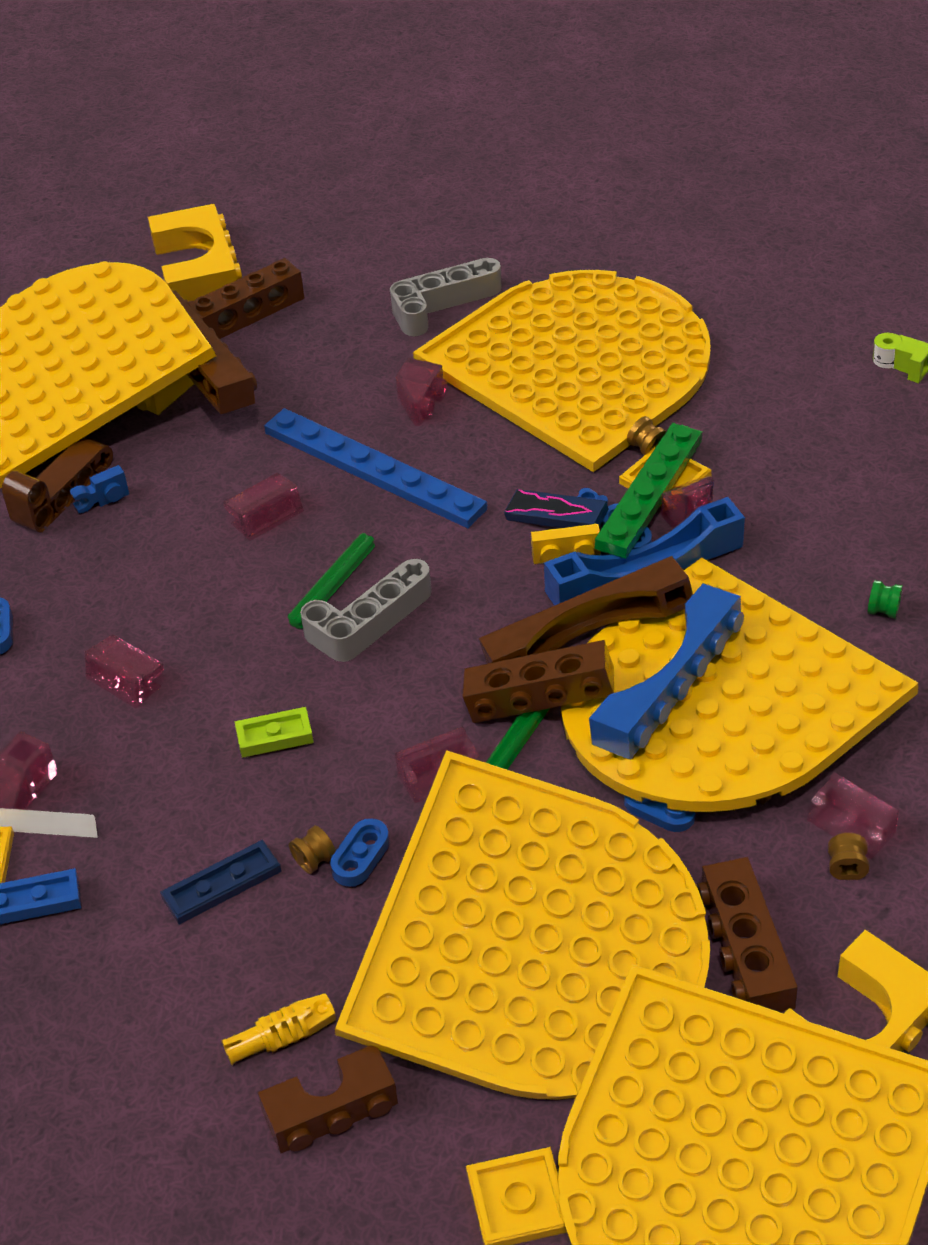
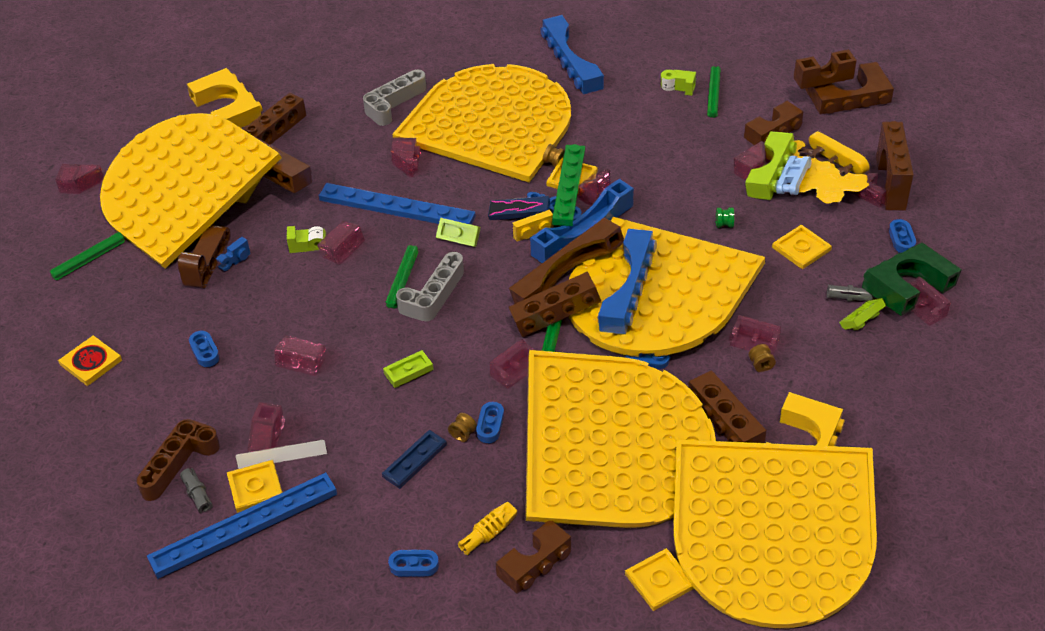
camera: 20 degrees left, 0 degrees up
(144, 1053) = (413, 562): none -> blue plate
(210, 489) = (304, 240): none -> lime leg
(445, 528) = (458, 232): none -> lime plate
(755, 315) = (585, 74): none -> blue arch

